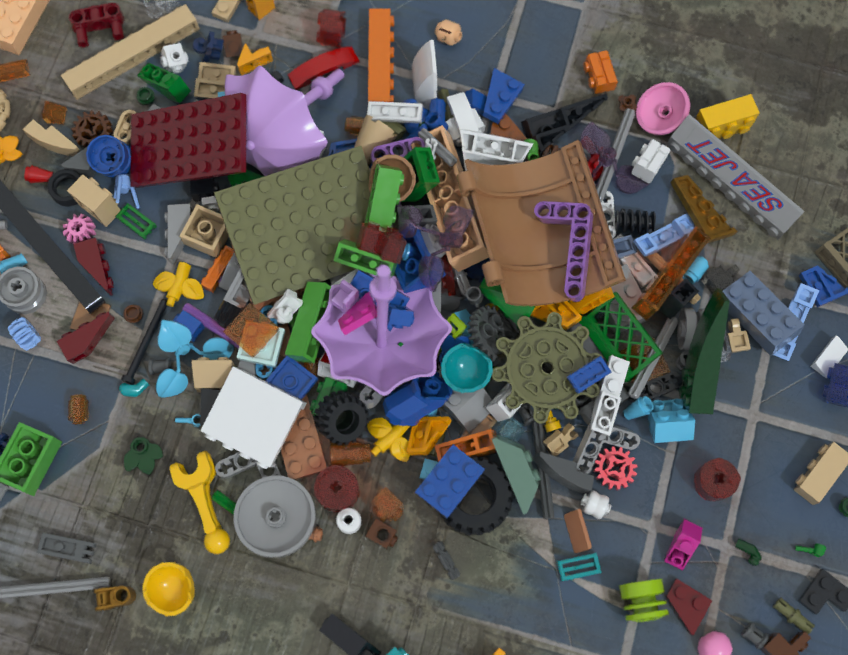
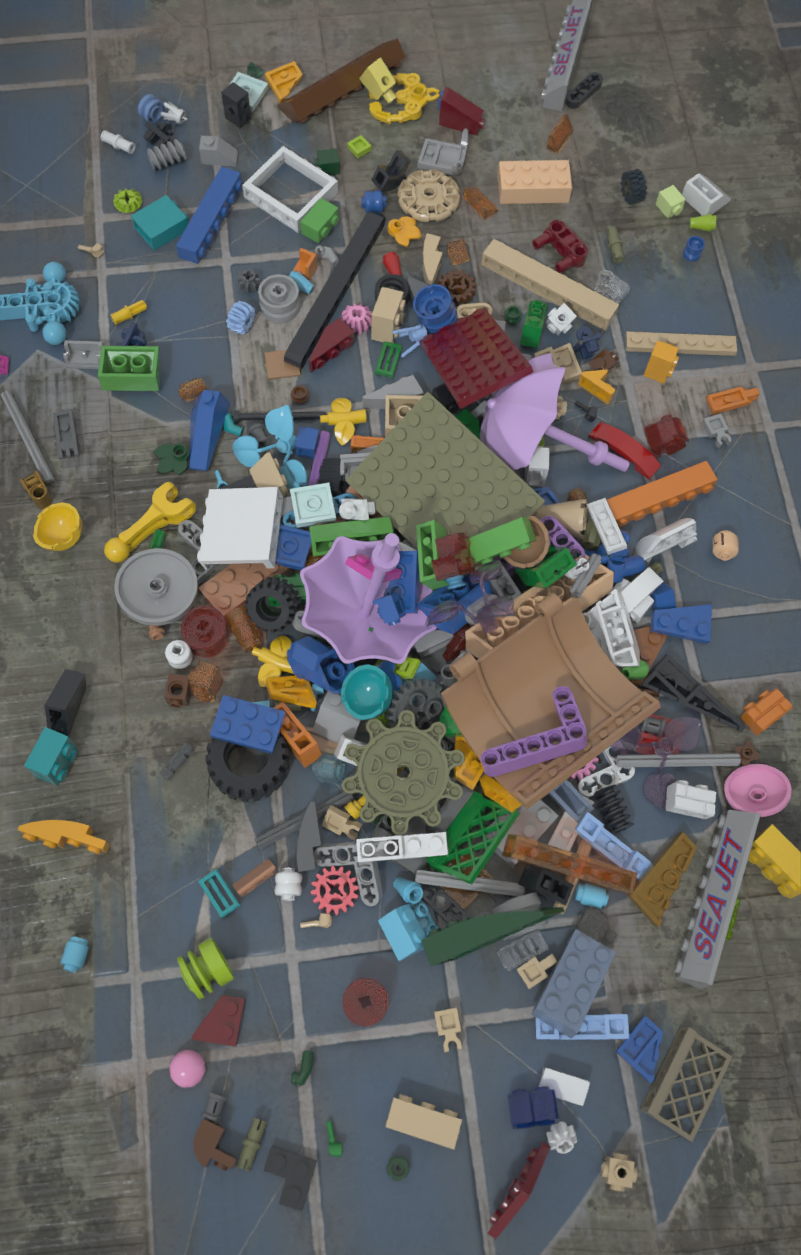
camera: 65 degrees right, 5 degrees down
(83, 341) = (256, 366): dark red slope -> none
(123, 410) = (205, 427): none -> blue wedge
(251, 330) = (320, 489): clear orange plate -> none
(519, 470) = (287, 786): sand green wedge -> none
(589, 374) = (412, 814): blue plate -> none
(636, 487) = (324, 922): none -> tan hand
(683, 544) = (283, 992): dark pink slope -> none
(755, 423) = (448, 1025): none -> tan plate

